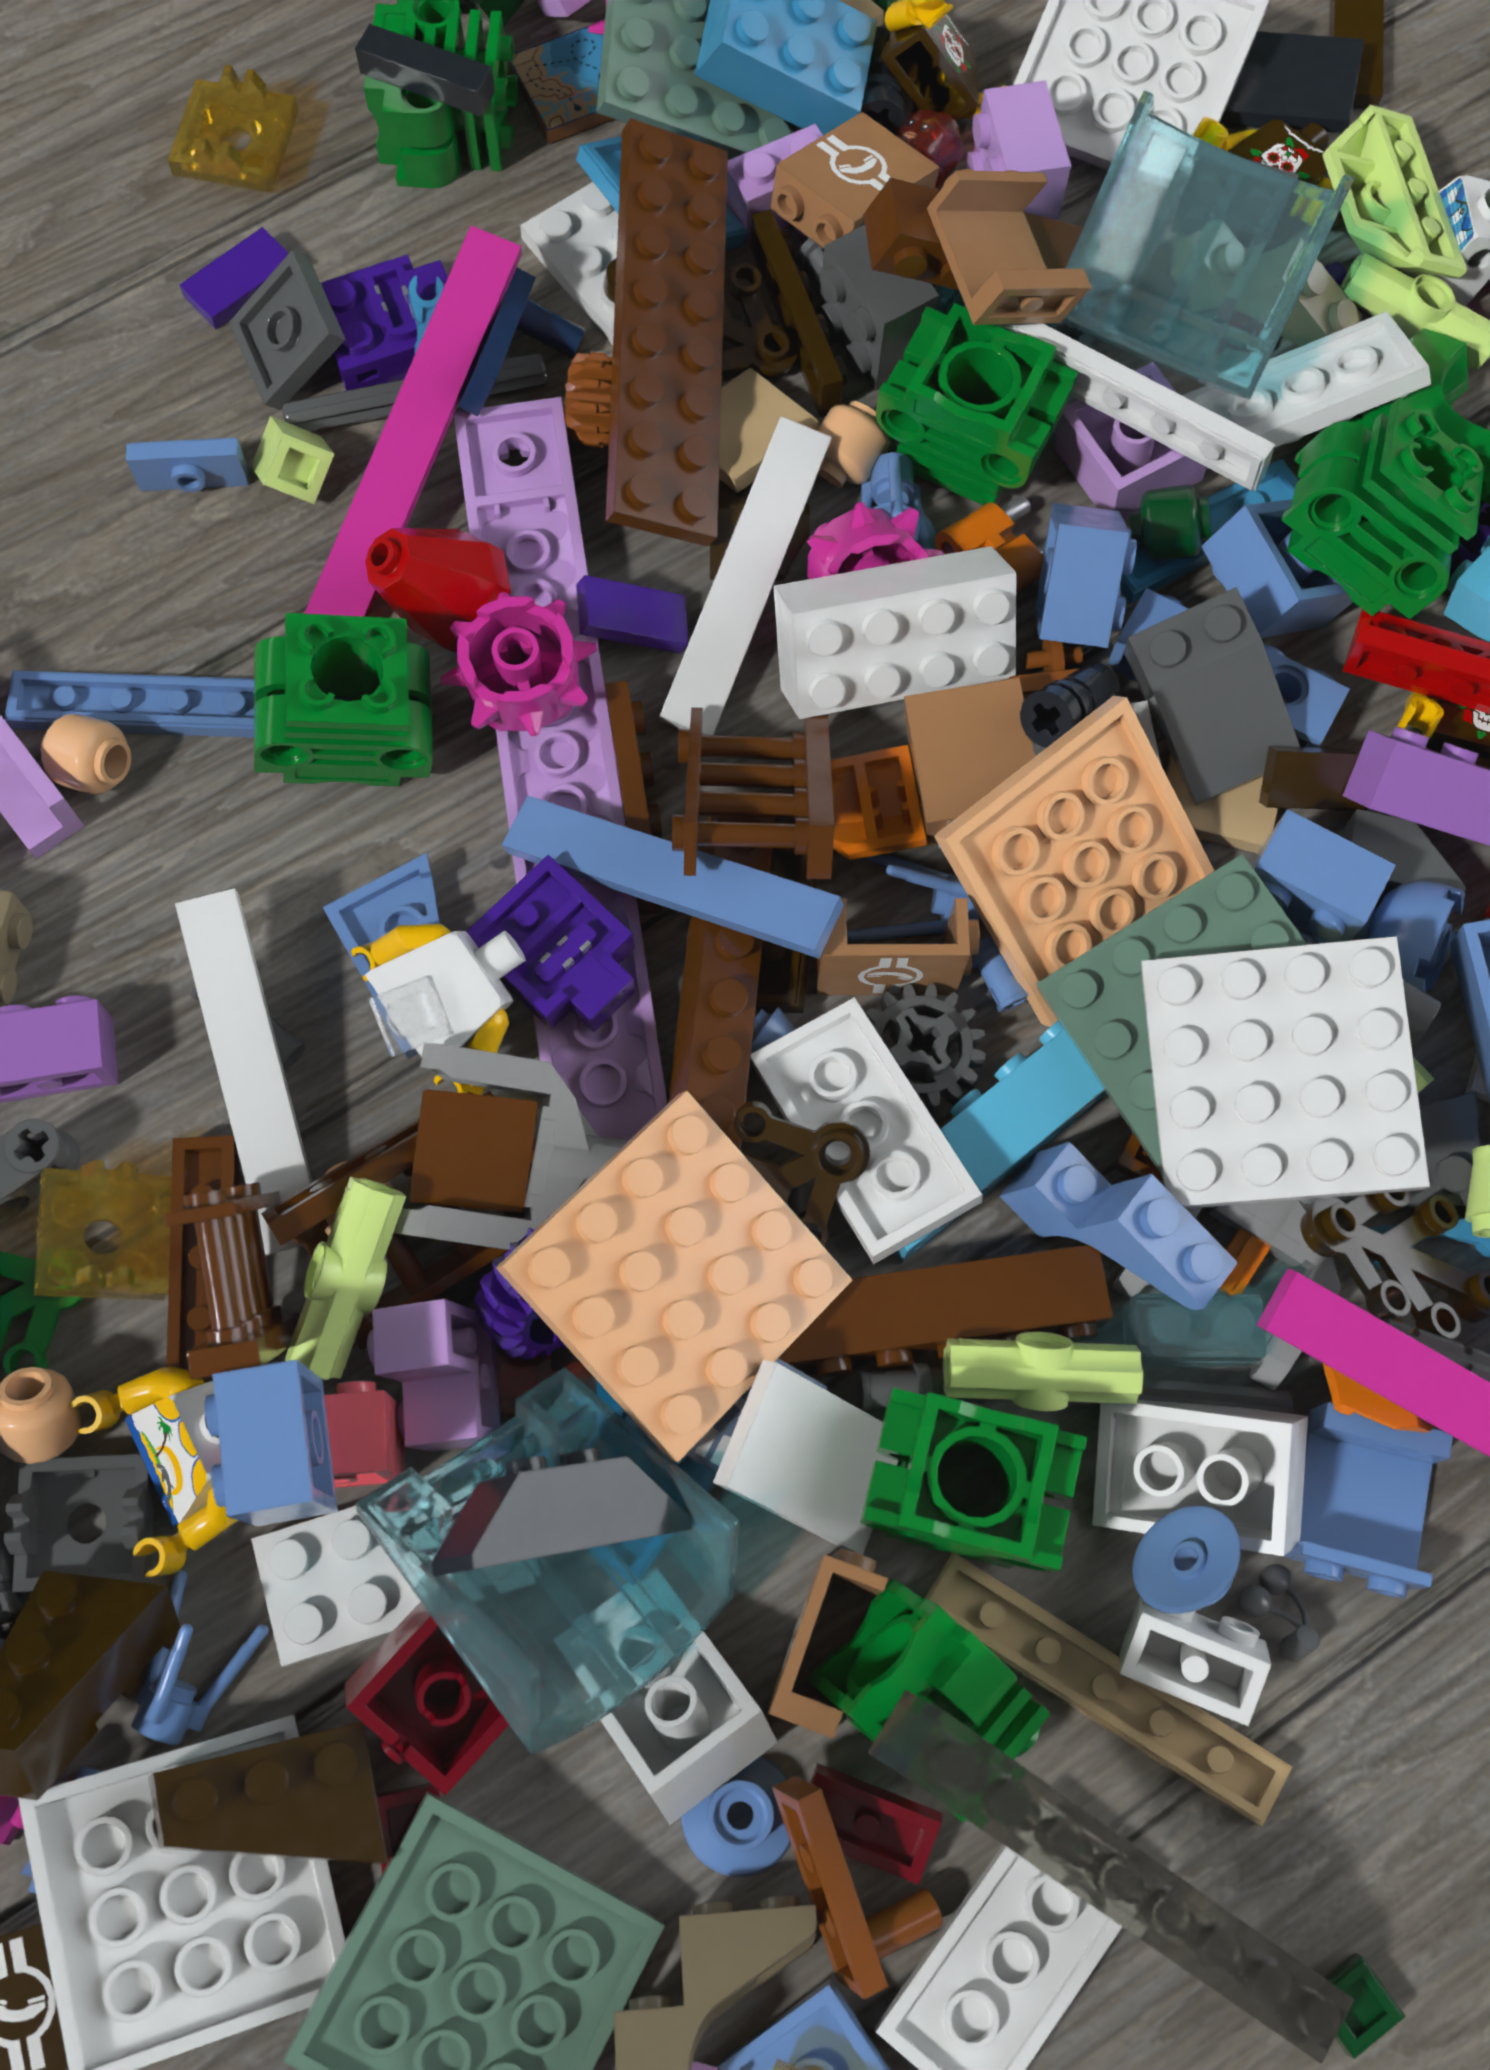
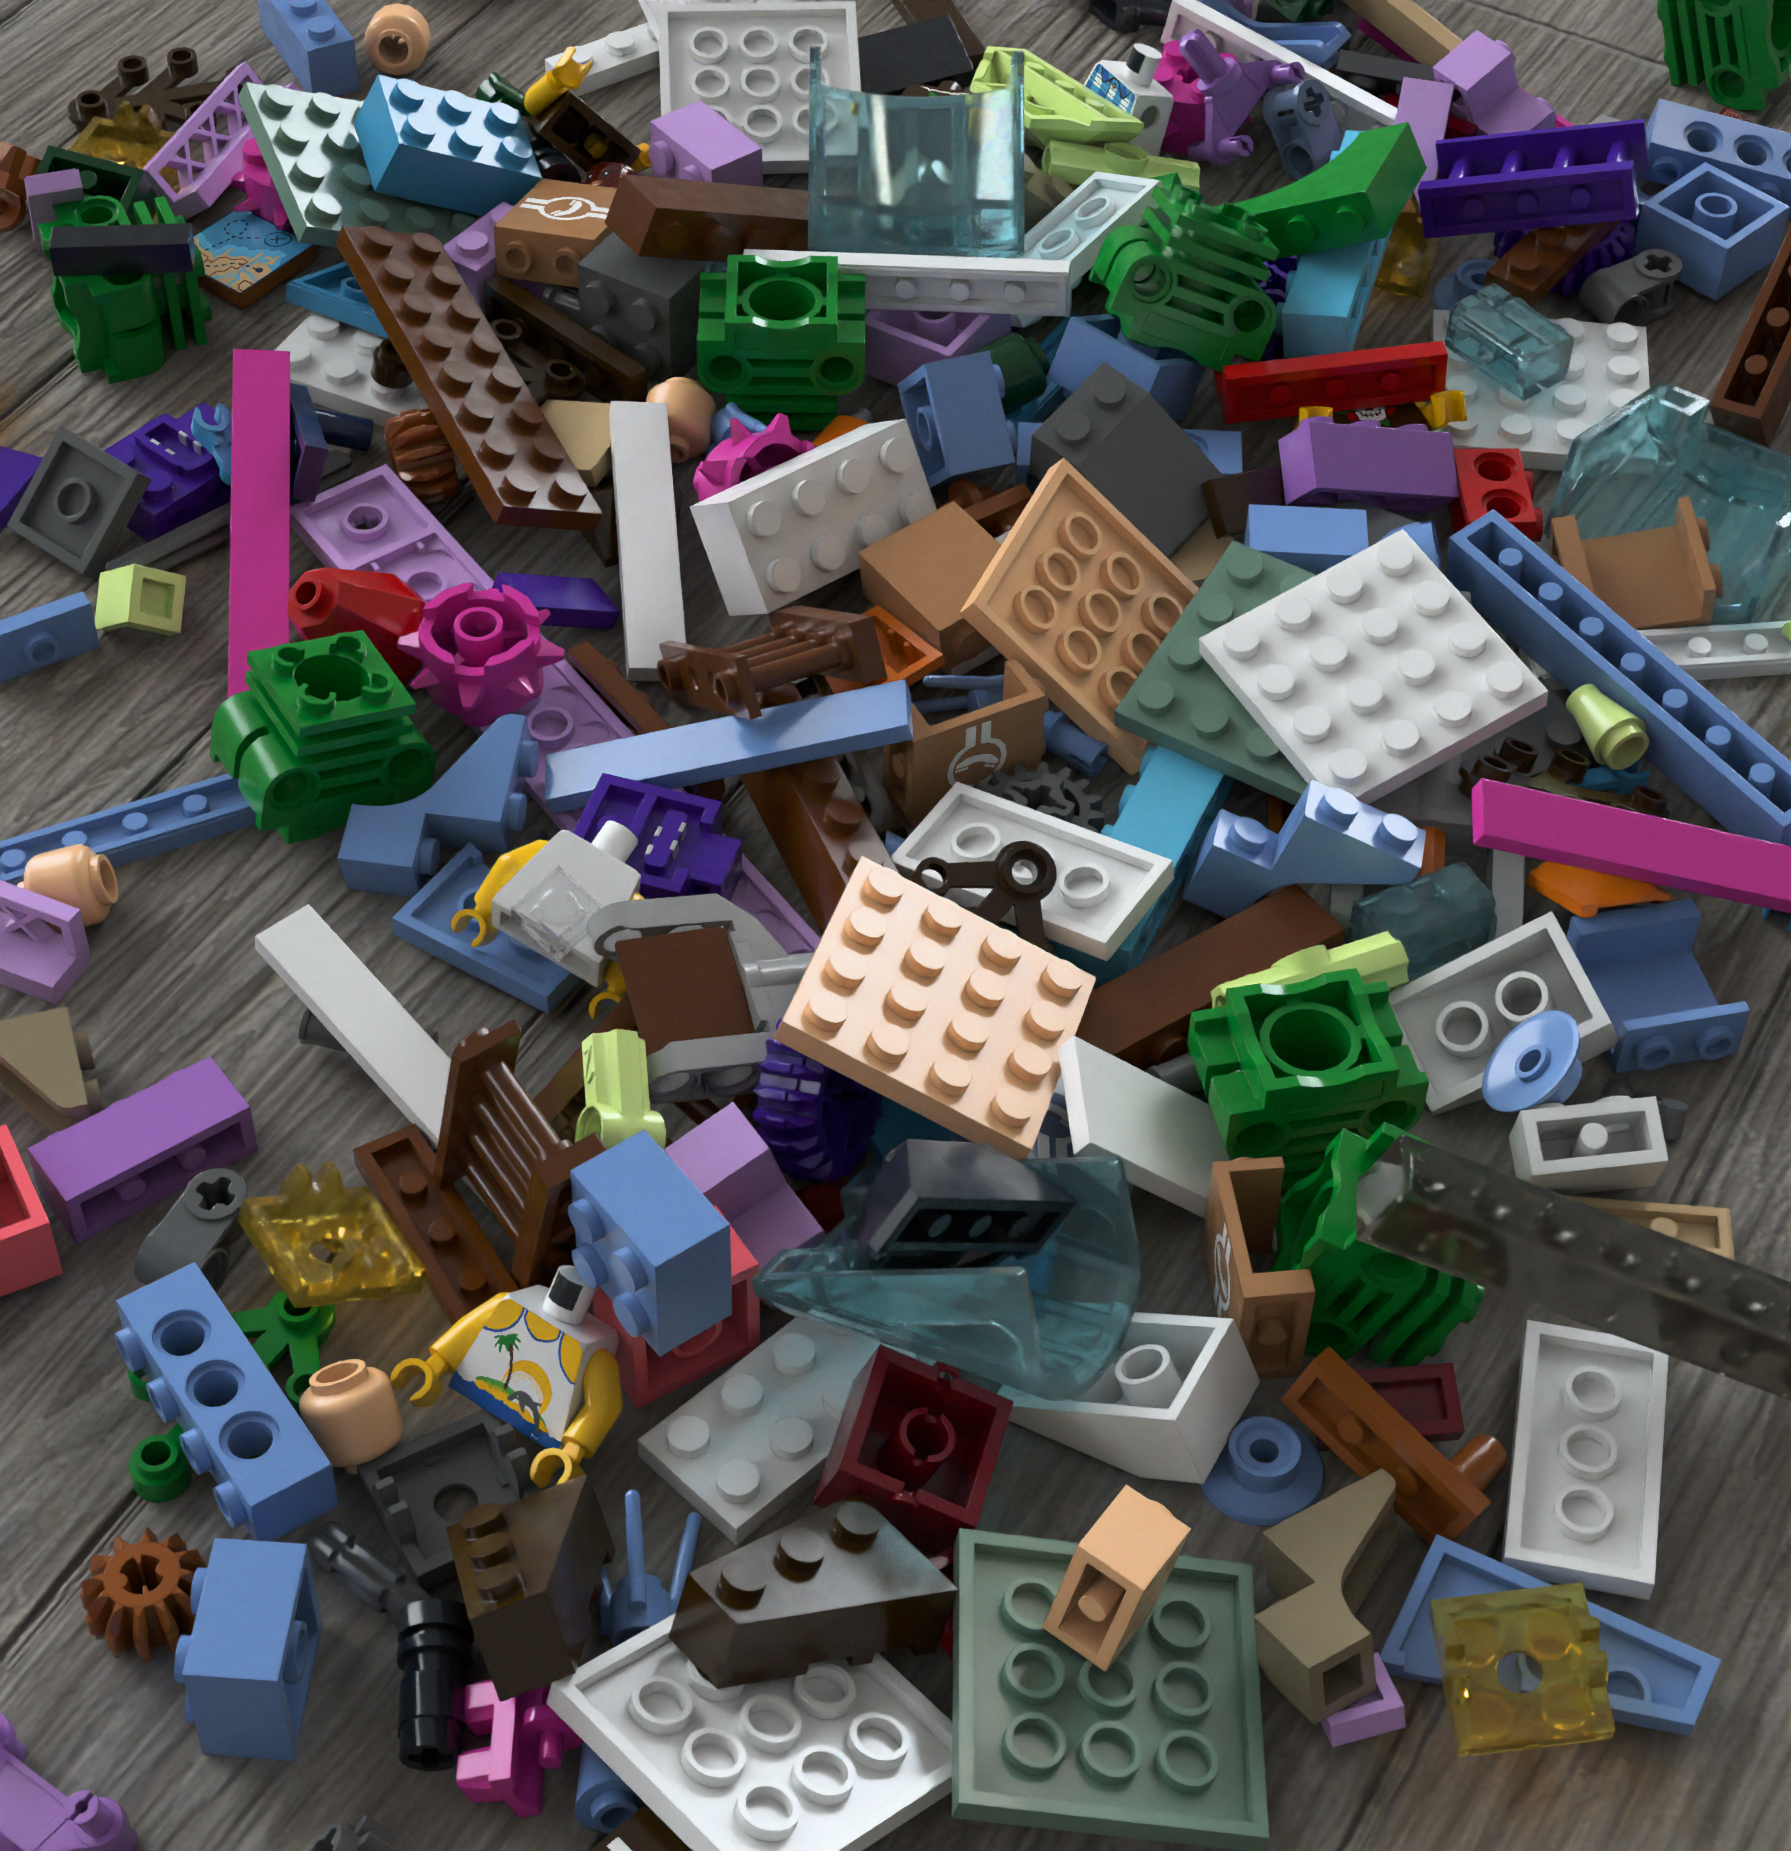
camera: 25 degrees left, 25 degrees down
(443, 817) = (474, 801): none -> medium blue arch
(506, 1943) = (1116, 1577): none -> light nougat brick
(995, 252) = (713, 183): medium nougat panel -> none
(1066, 702) = (994, 505): black axle -> none

